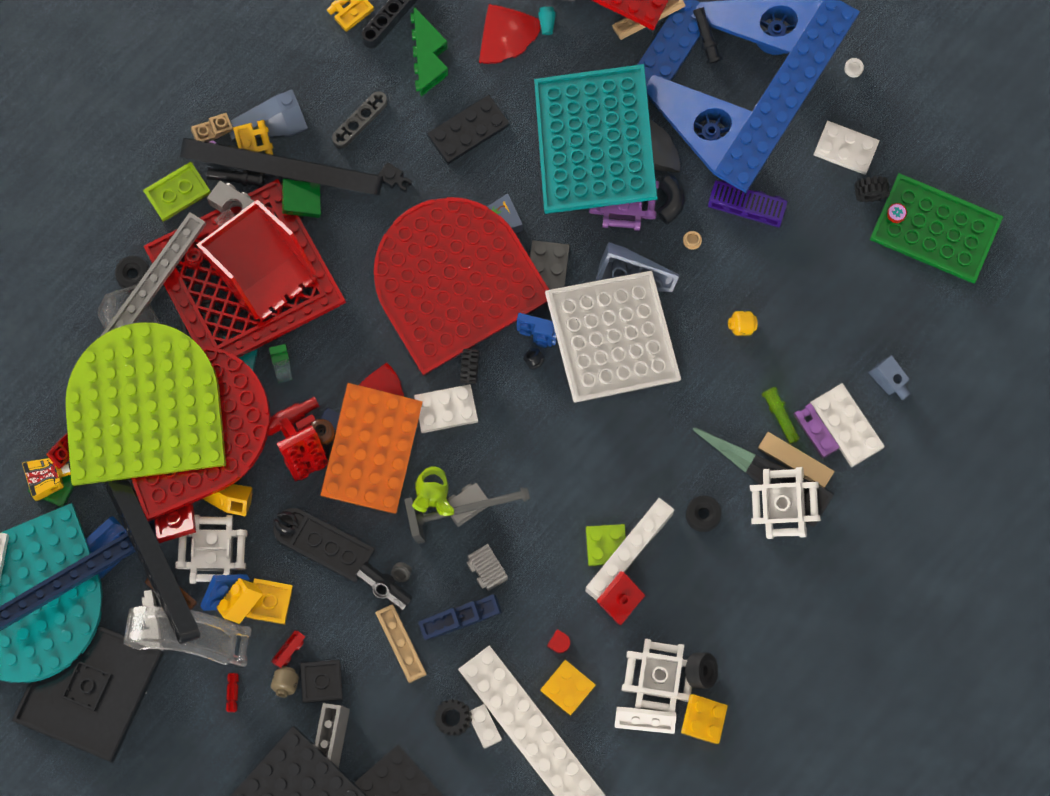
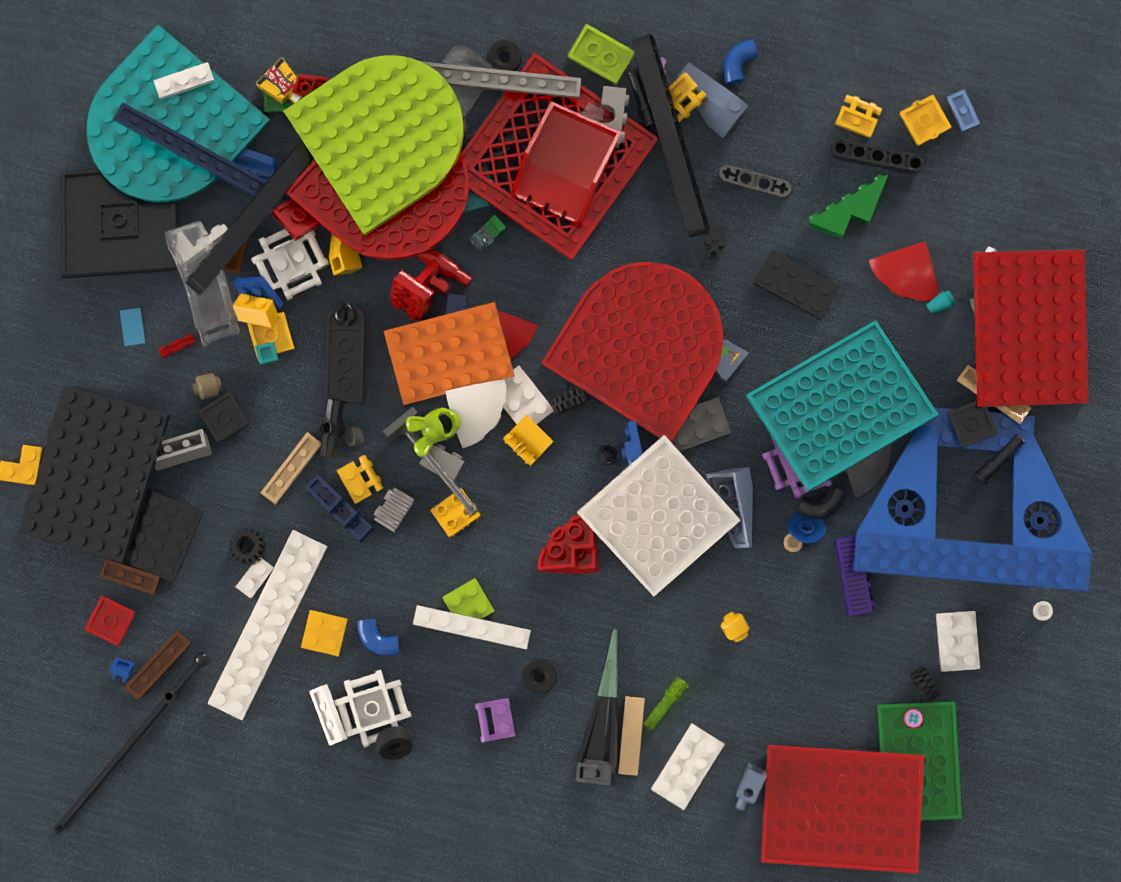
camera: 65 degrees right, 10 degrees up
(192, 726) = (132, 326): none -> dark azure sticker
(193, 252) = (540, 100): red plate -> none
(213, 129) = (677, 53): tan slope -> none
(245, 83) = (734, 60): none -> blue cylinder
(284, 611) = (266, 353): none -> teal tile
(293, 643) = (230, 373): red plate -> none
(301, 198) = (649, 168): green tile -> none
(324, 425) = (443, 307): reddish brown head -> none
(435, 447) = (478, 409): none -> white brick
(443, 592) = (354, 481): none -> yellow plate
(486, 418) = (528, 440): none -> yellow hinge
(518, 517) = (452, 515): none -> yellow hinge
(559, 642) = (360, 606): red tile -> none
(600, 643) = (374, 641): none -> blue cylinder
(602, 429) = (571, 549): none -> red brick
(620, 598) = (424, 640): red plate -> none
(665, 43) = (971, 424): none -> black plate
(686, 221) = (806, 529): none -> blue dish
(704, 719) = (354, 766): yellow plate -> none
(724, 566) = (501, 719): none -> medium lavender plate
(784, 503) = (582, 744): white brick -> none
(816, 431) = (667, 742): medium lavender plate -> none
(948, 309) = (842, 808): none -> red plate

